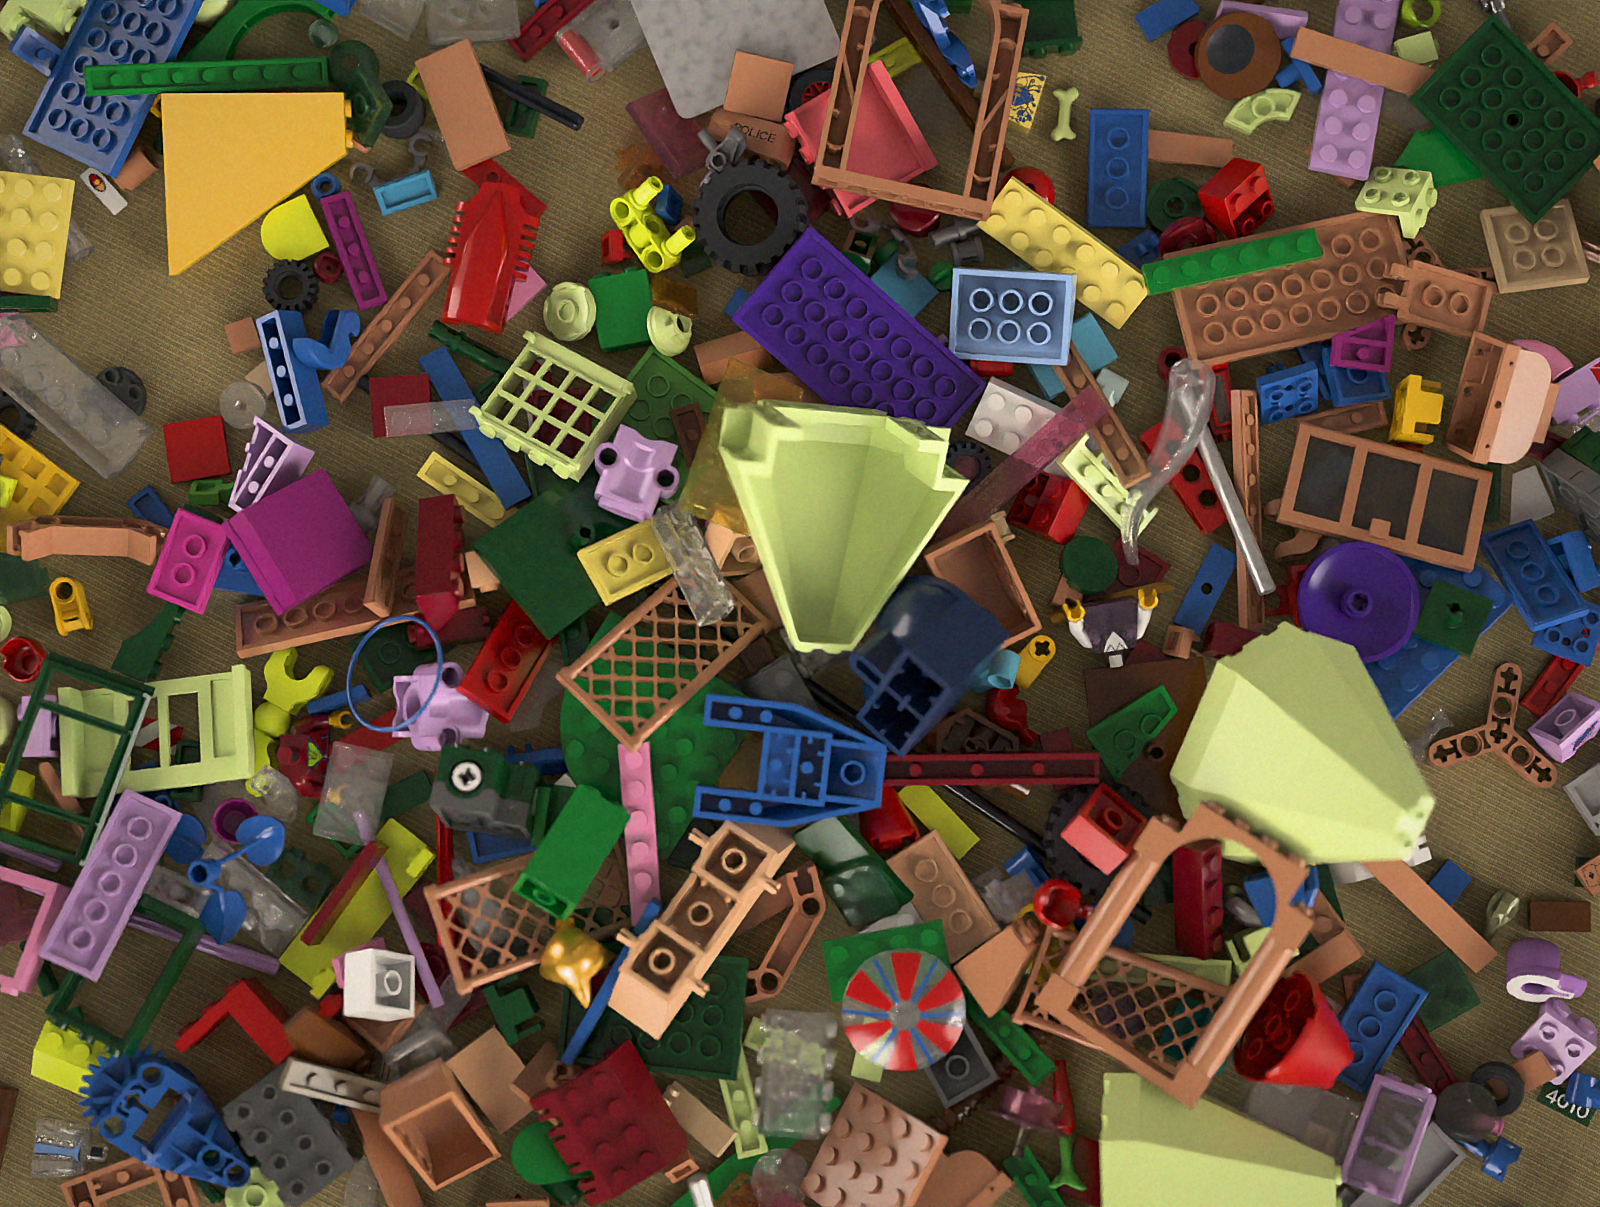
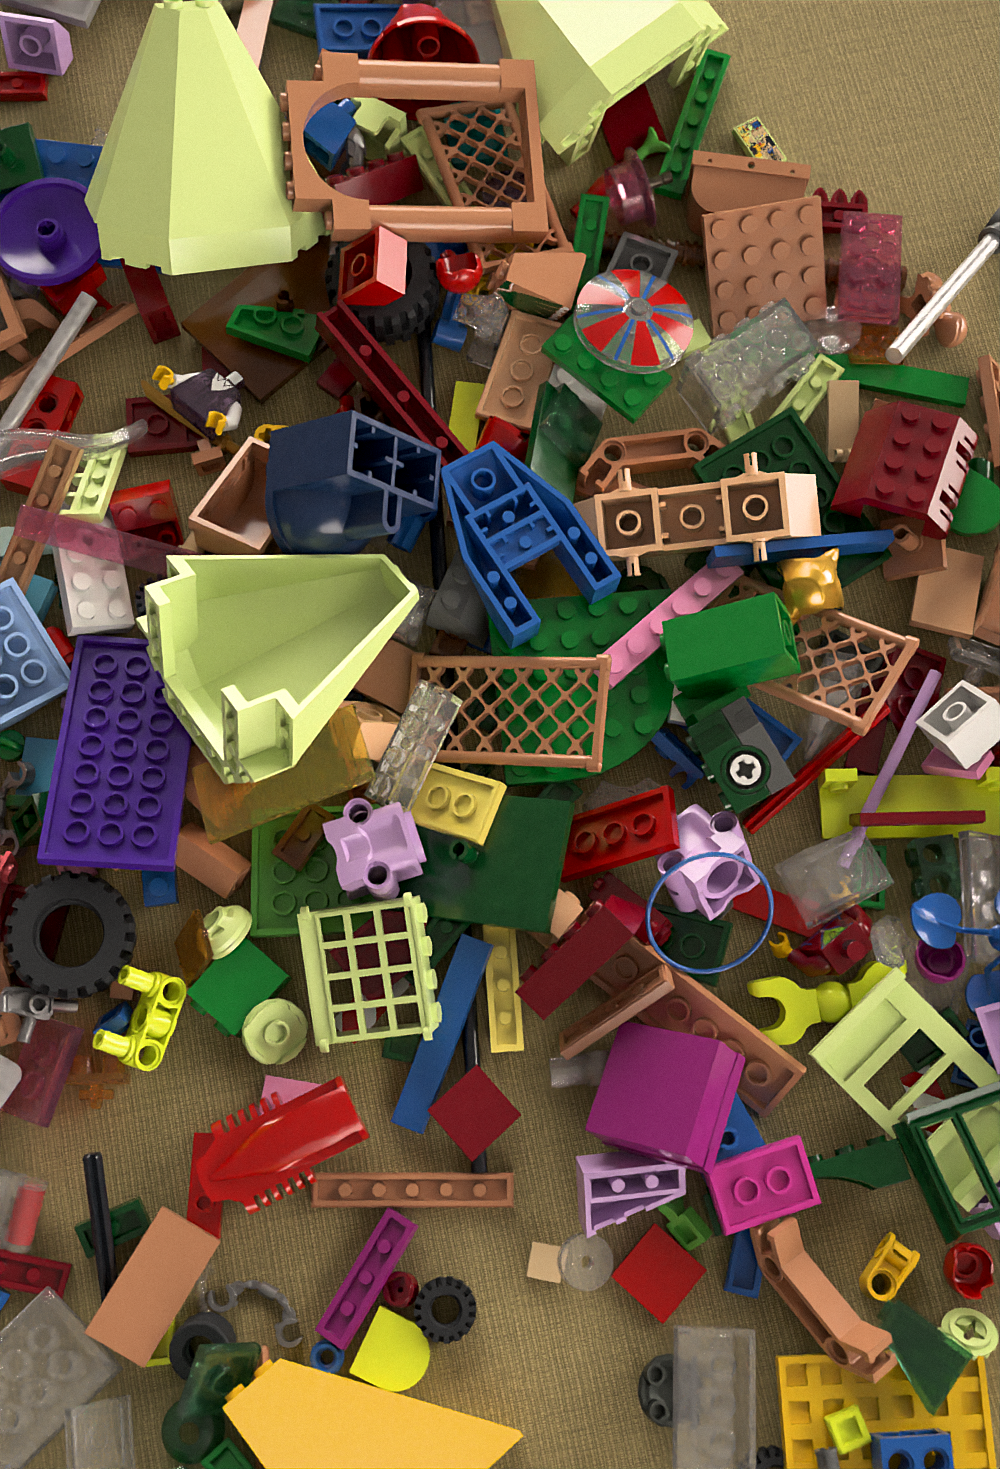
camera: 125 degrees left, 10 degrees down
(243, 335) = (523, 1318): nougat tile -> none
(293, 383) = (520, 1239): blue brick -> none
(333, 344) = (466, 1221): blue animal -> none
(338, 700) = (768, 958): blue tile -> none
(405, 192) = (275, 1274): dark azure tile -> none
(406, 795) = (789, 838): dark green tile -> none
(429, 418) = (465, 1073): clear plate -> none
(447, 1013) = (920, 664): clear tile -> none
(460, 343) = (376, 1100): dark green pin -> none
(513, 1008) = (888, 606): dark green panel -> none
(612, 248) = (188, 1040): red tile -> none
(694, 259) = (149, 960): tile -> none
(1088, 565) = (172, 450): dark green tile -> none
(1178, 642) = (183, 349): nougat tile -> none
(1214, 573) = (110, 362): blue tile -> none
(1502, 747) = (78, 85): nougat piece -> none

